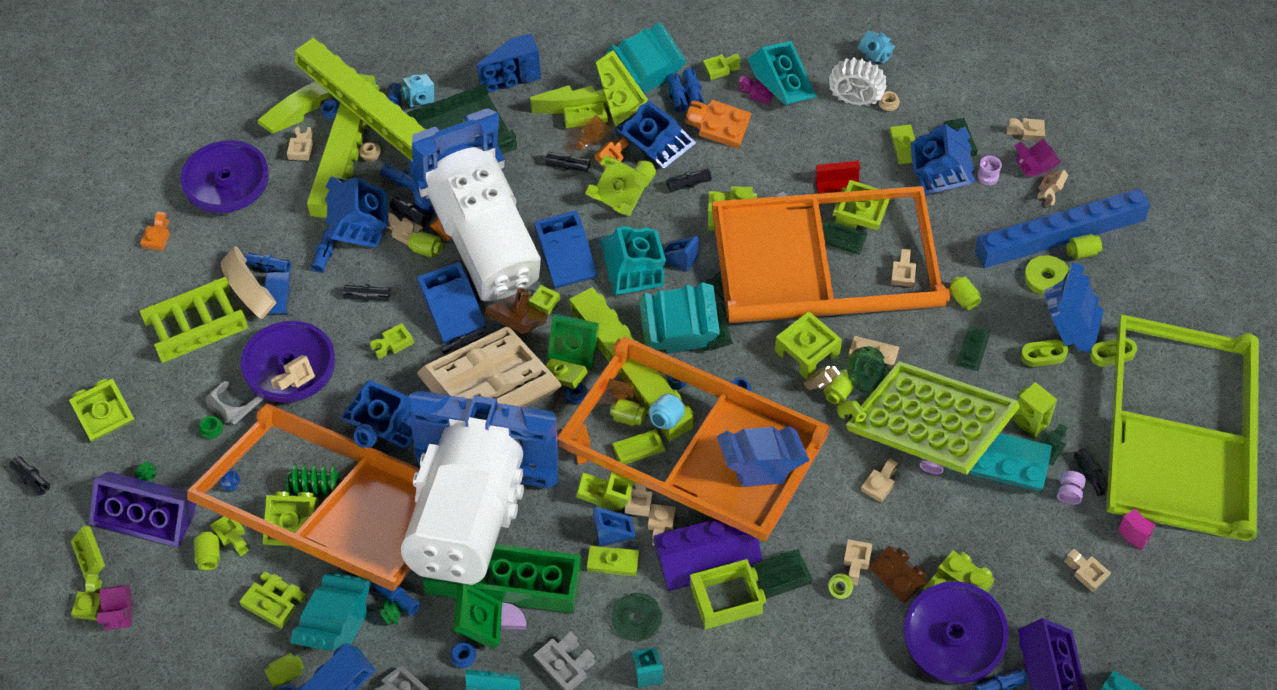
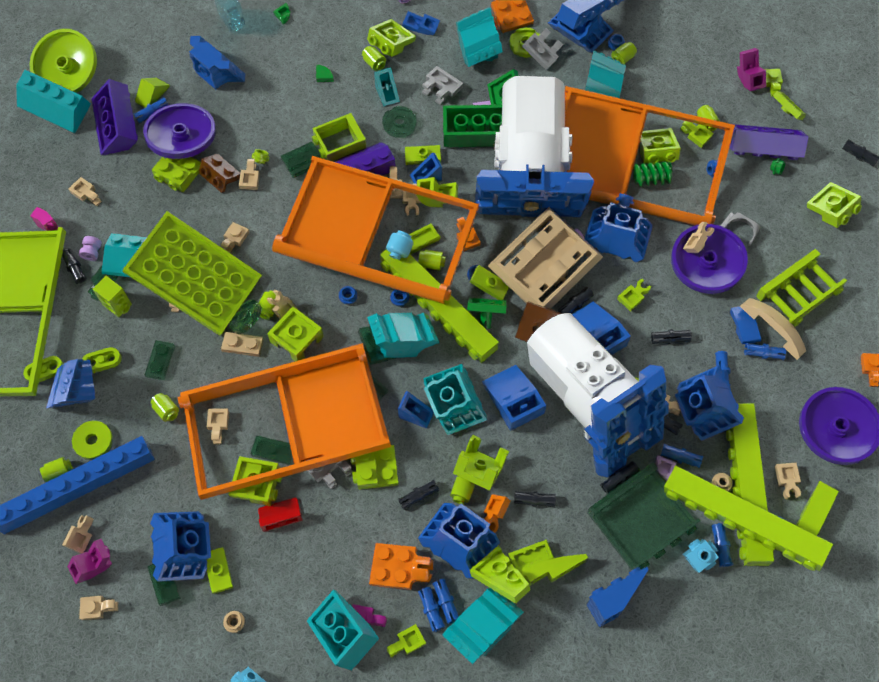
camera: 170 degrees right, 10 degrees up
(210, 427) = (746, 207): green plate -> none
(269, 605) = (650, 91): lime plate -> none
(544, 300) = (519, 350): lime plate -> none
(594, 132) = (518, 534): clear orange plate -> none
(620, 390) = (439, 265): clear orange plate -> none
(762, 454) = (320, 205): blue slope -> none
(851, 407) = (257, 285): lime arm -> none
(857, 82) = (264, 624): white gear -> none
(989, 170) = (133, 542): lavender wheel -> none

